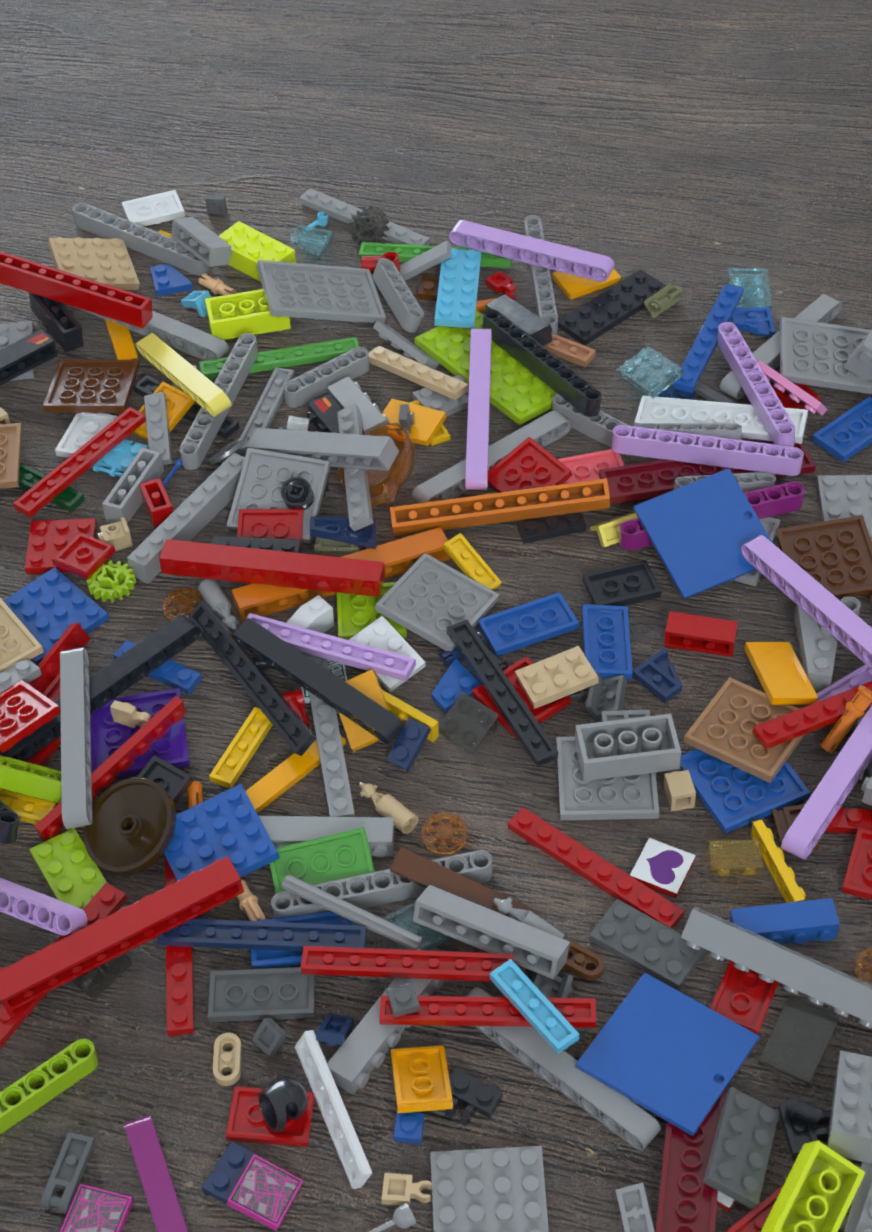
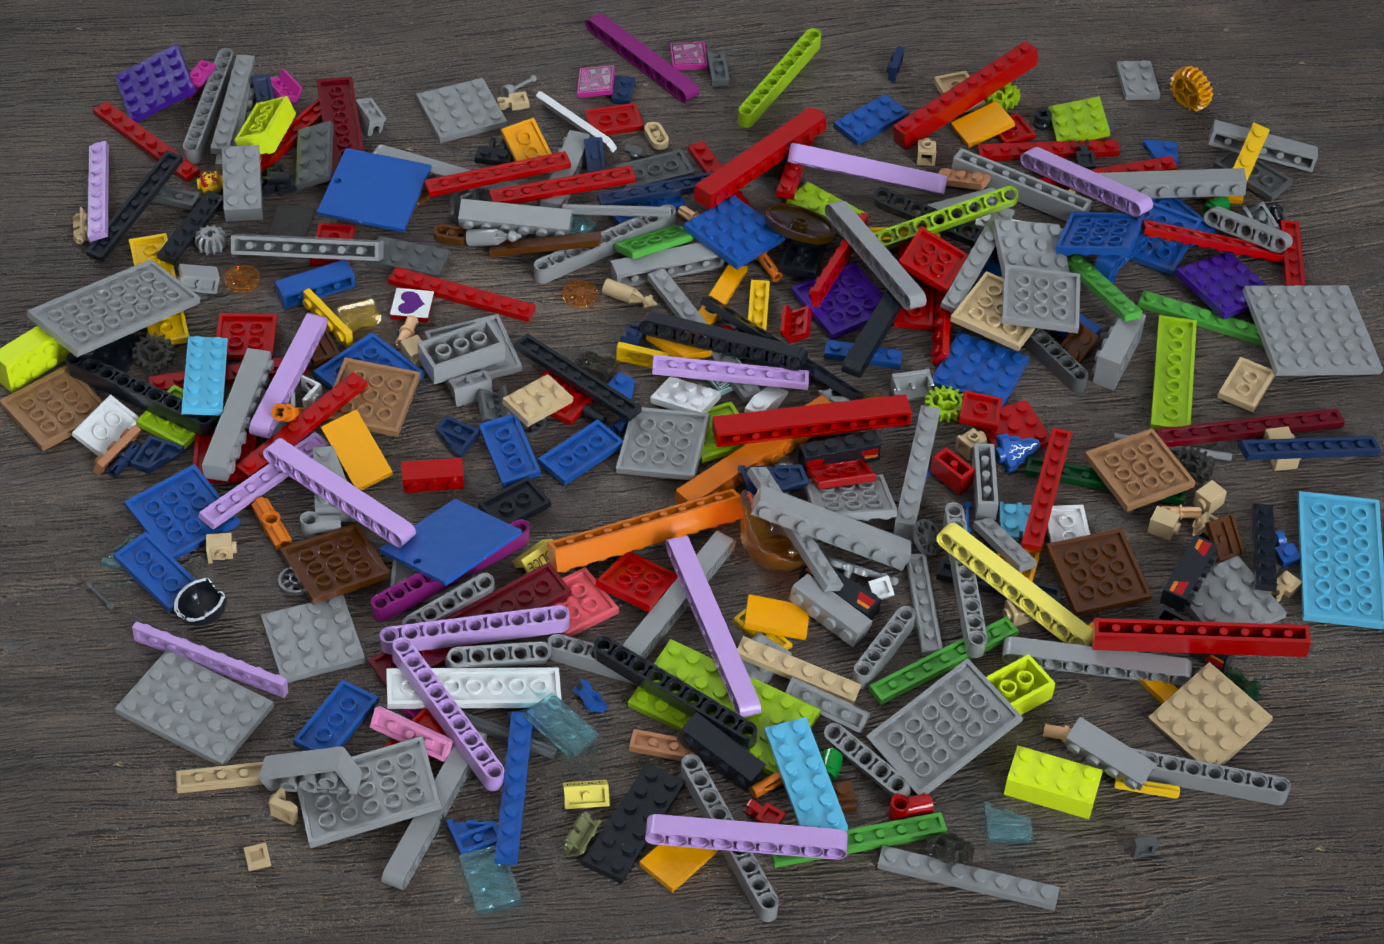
camera: 155 degrees right, 0 degrees up
(78, 510) = (1013, 450): none -> blue rock
(127, 715) = (854, 294): tan plate -> none
(130, 614) = (912, 383): none -> light grey hinge
(154, 208) = (1209, 824): white plate -> none
(169, 280) = (1128, 732): blue wing -> none
(197, 301) = (1071, 706): medium azure bracket -> none
(209, 713) = (795, 323): none -> red bracket
(280, 1099) = (606, 109): black helmet -> none
(297, 493) = (829, 486): black wheel -> none
(321, 220) = (1018, 860): medium azure hand -> none
(403, 1000) = (554, 159): dark grey plate -> none
(406, 417) = (776, 600): dark grey plate -> none
(425, 260) = (859, 808): light grey tile -> none
(428, 303) = (832, 760): none -> green brick
(471, 562) = (650, 484): yellow tile -> none
(534, 1006) = (467, 170): medium azure plate -> none
(612, 396) = (591, 698): none -> blue plate
(645, 332) = (586, 794): none -> light yellow panel
(681, 824) = (407, 330): none -> light nougat pin
(817, 760) = (312, 394): none -> white bracket

